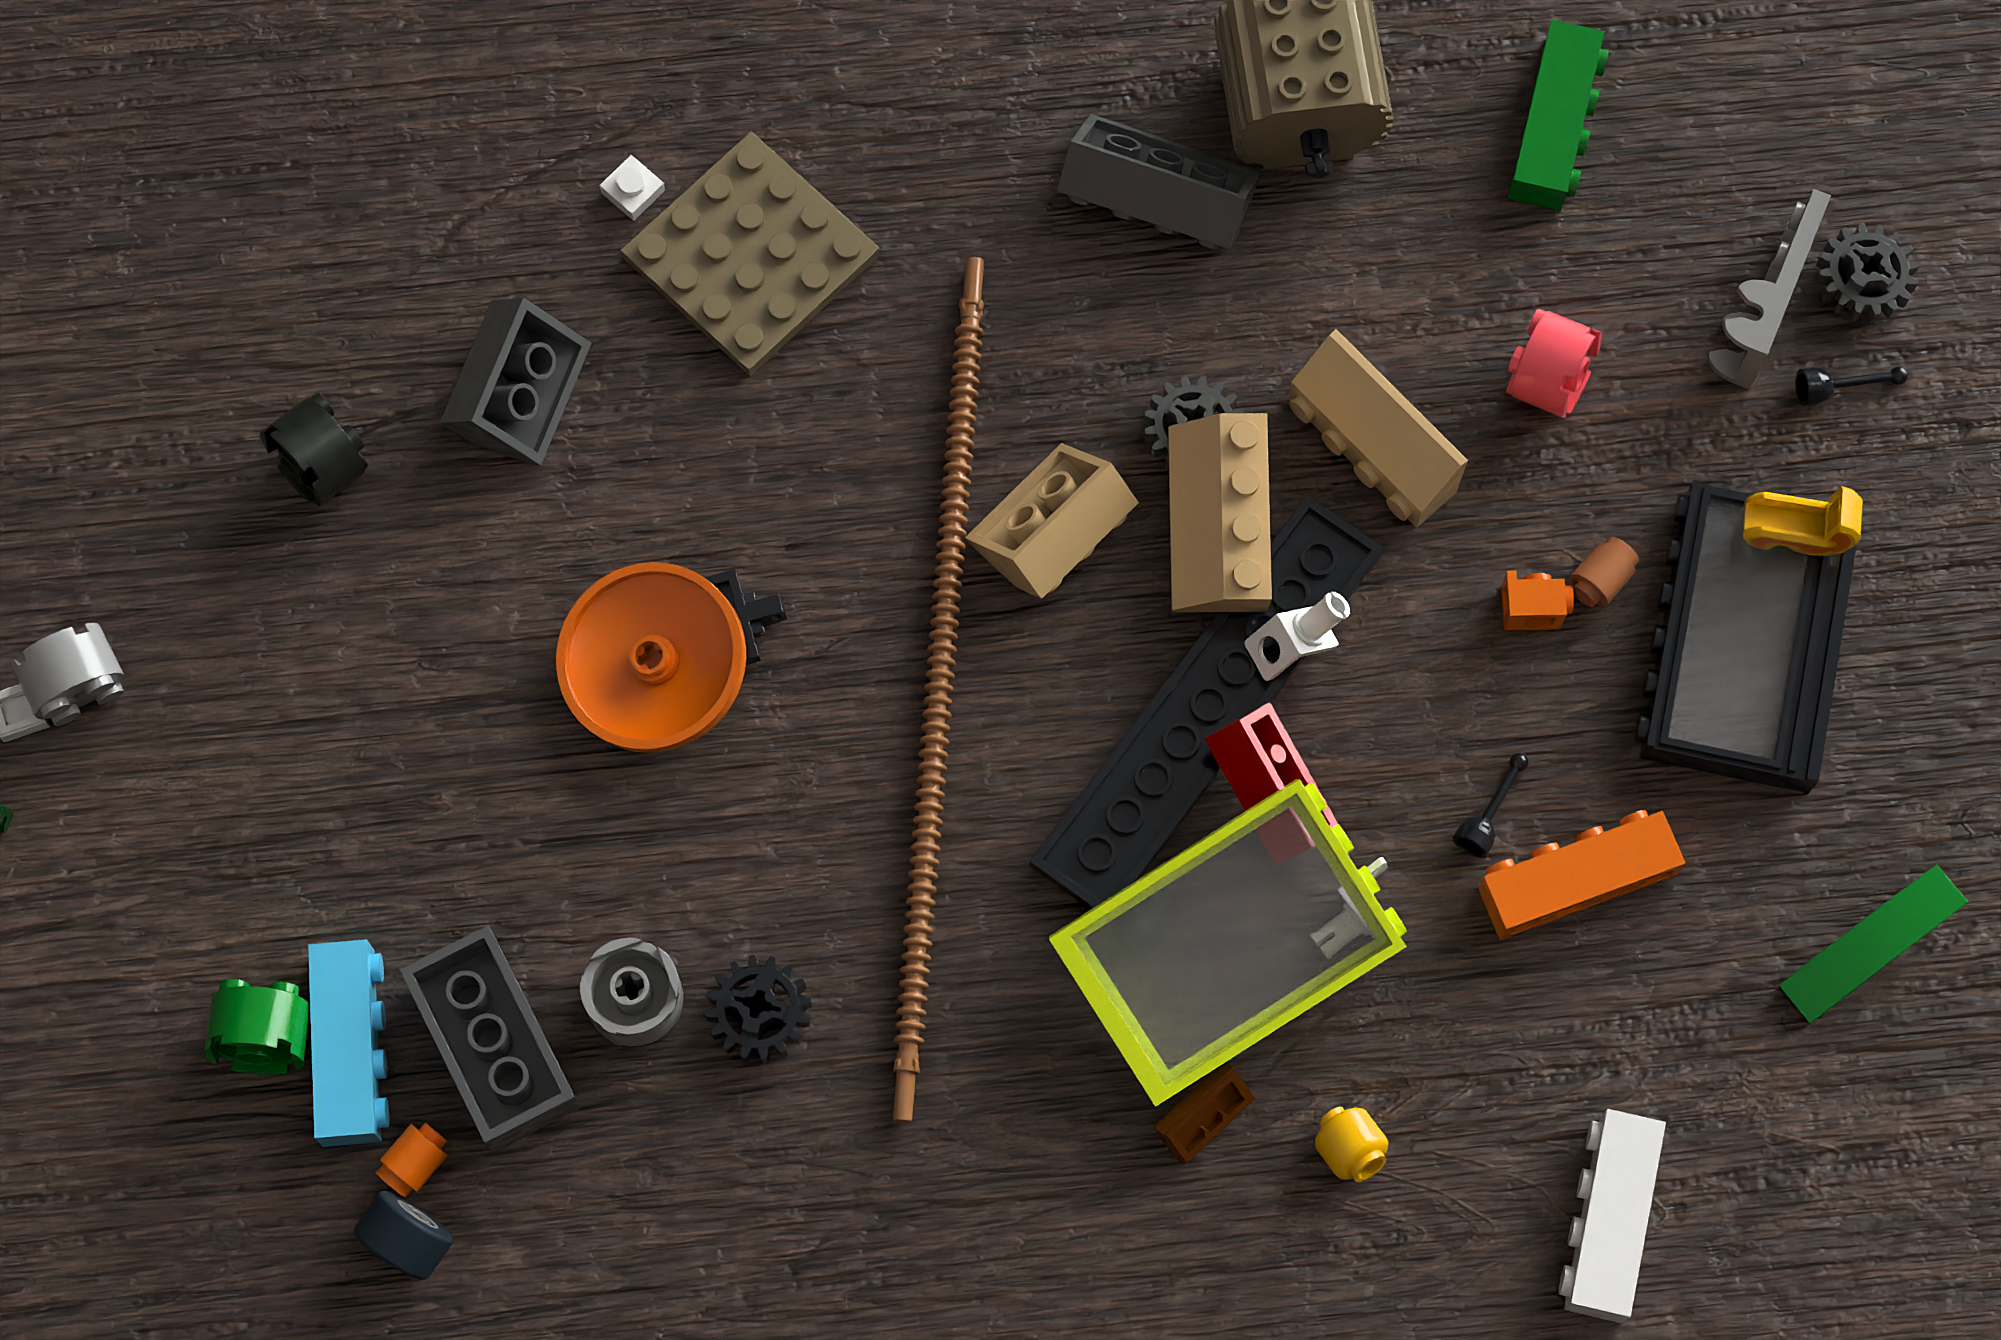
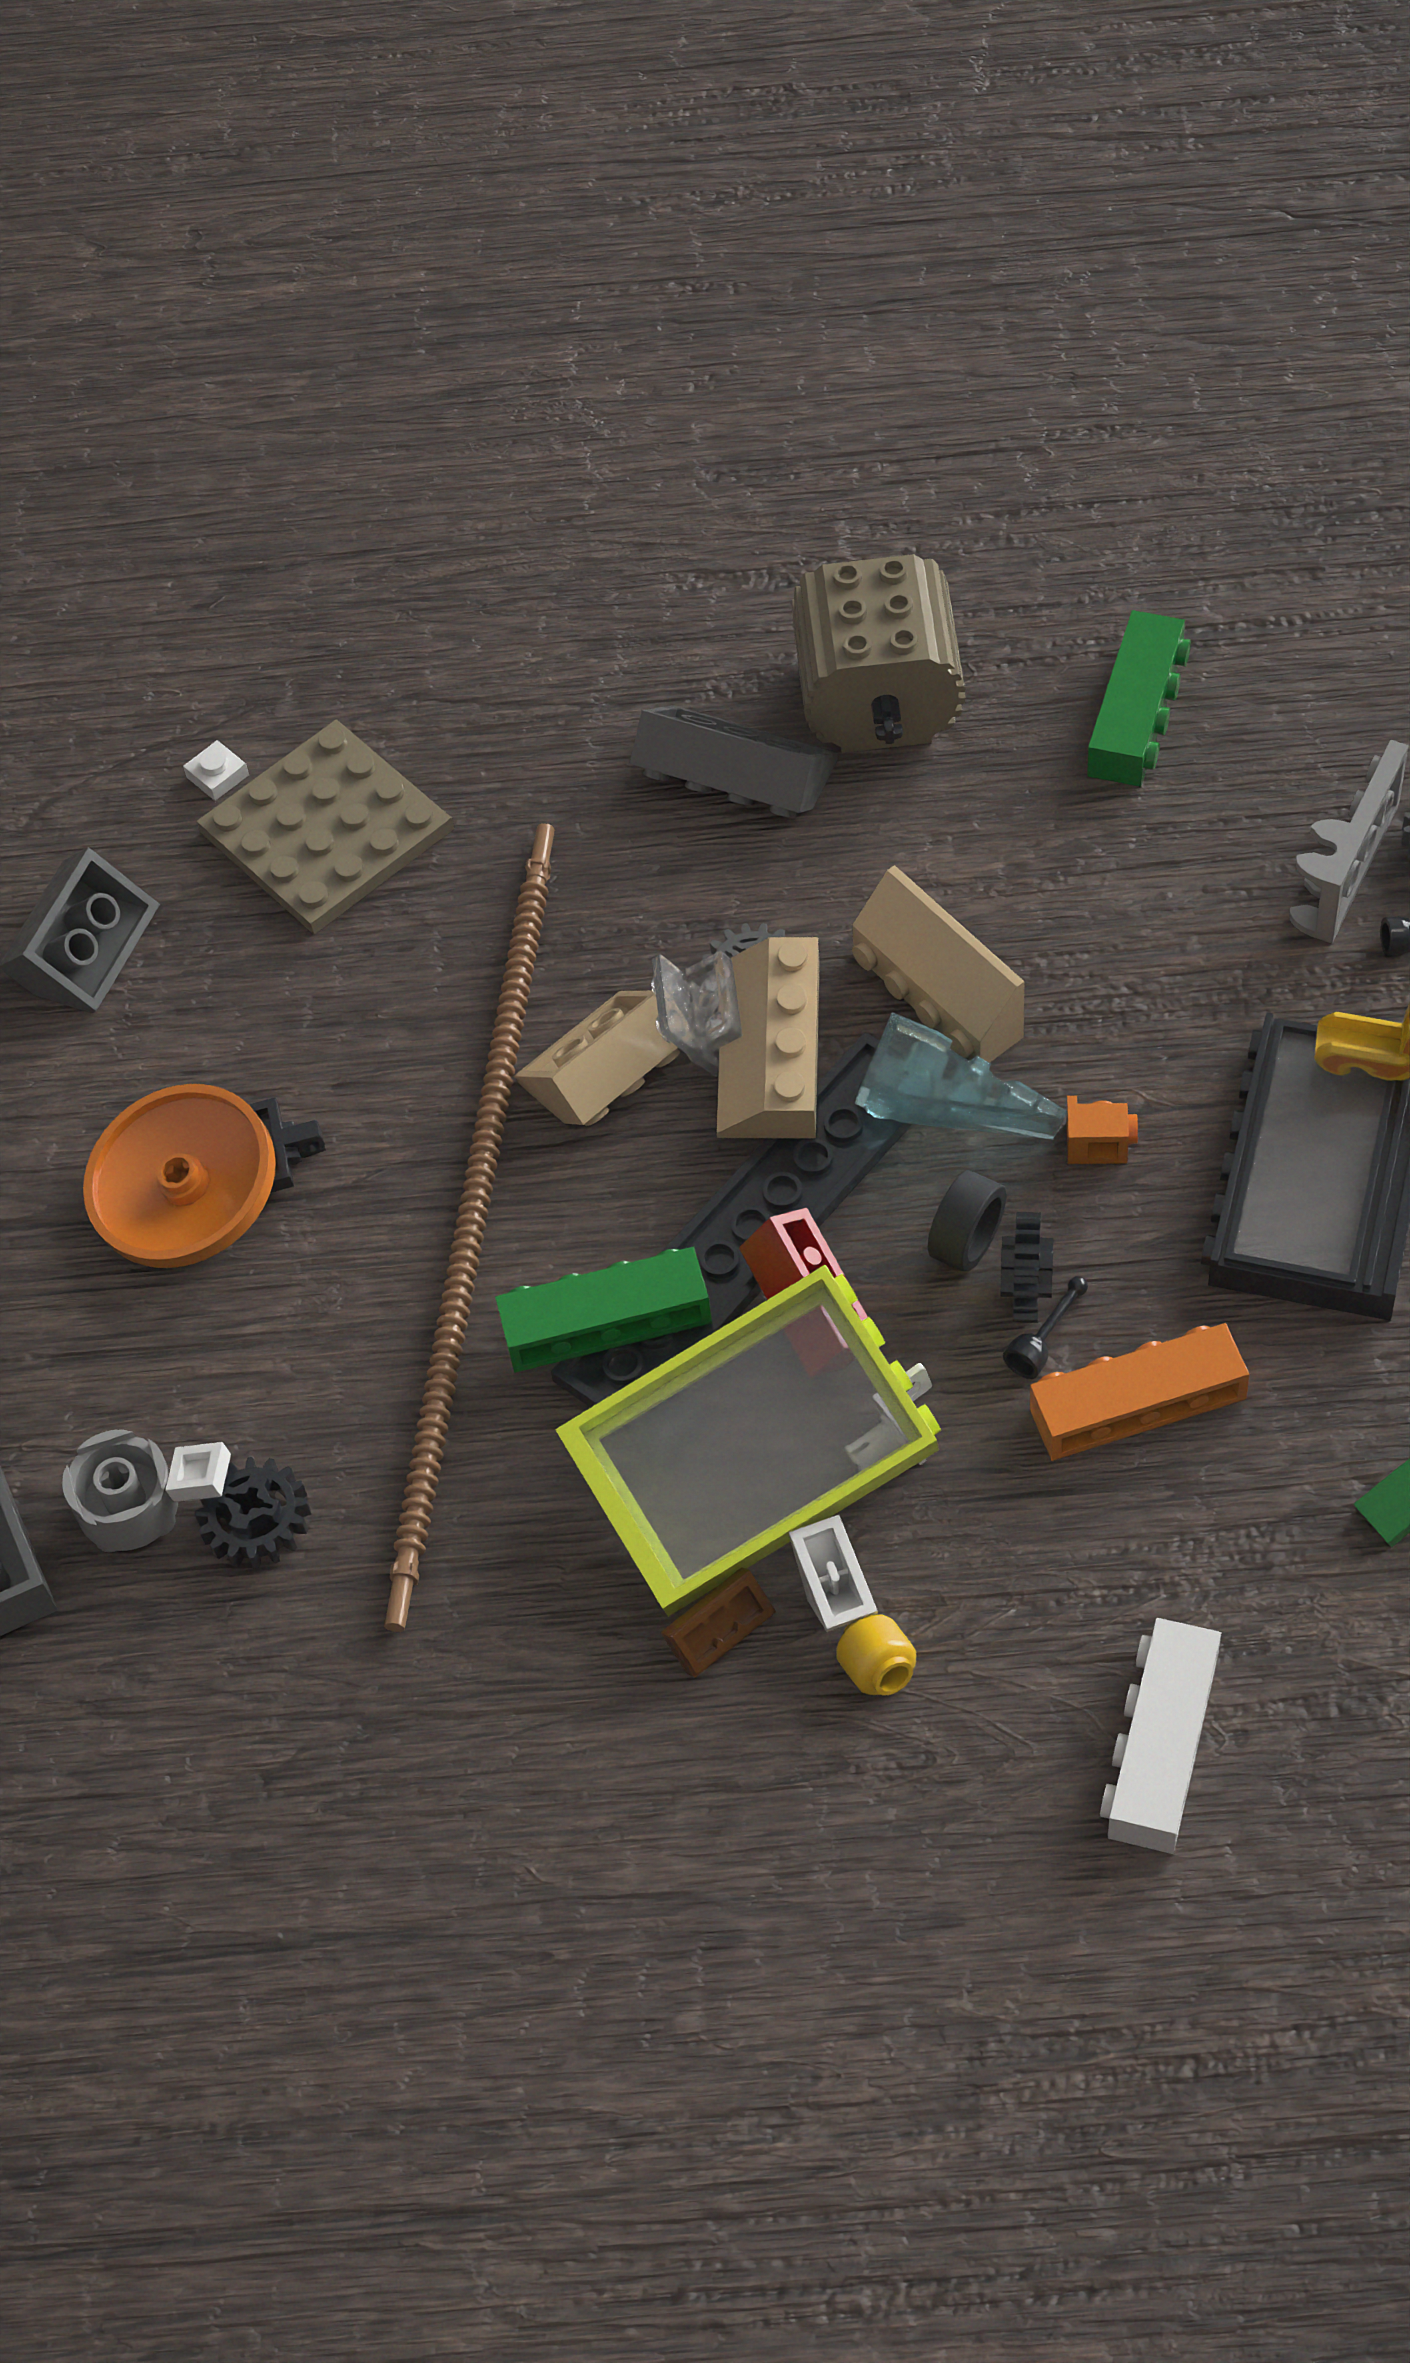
camera: 10 degrees right, 15 degrees down
(707, 976) = (198, 1472): none -> white plate
(1079, 801) = (604, 1309): none -> green brick
(1150, 480) = (697, 1007): none -> clear bracket
(1298, 634) = (844, 1150): white bracket -> none
(1309, 1071) = (831, 1574): none -> white slope
(1370, 559) = (928, 1084): none -> clear light blue wedge
(1416, 703) = (966, 1221): none -> black tyre
(1476, 754) = (1026, 1267): none -> black gear
(1554, 363) = (1124, 909): coral brick -> none
(1604, 572) = (1172, 1104): nougat brick -> none

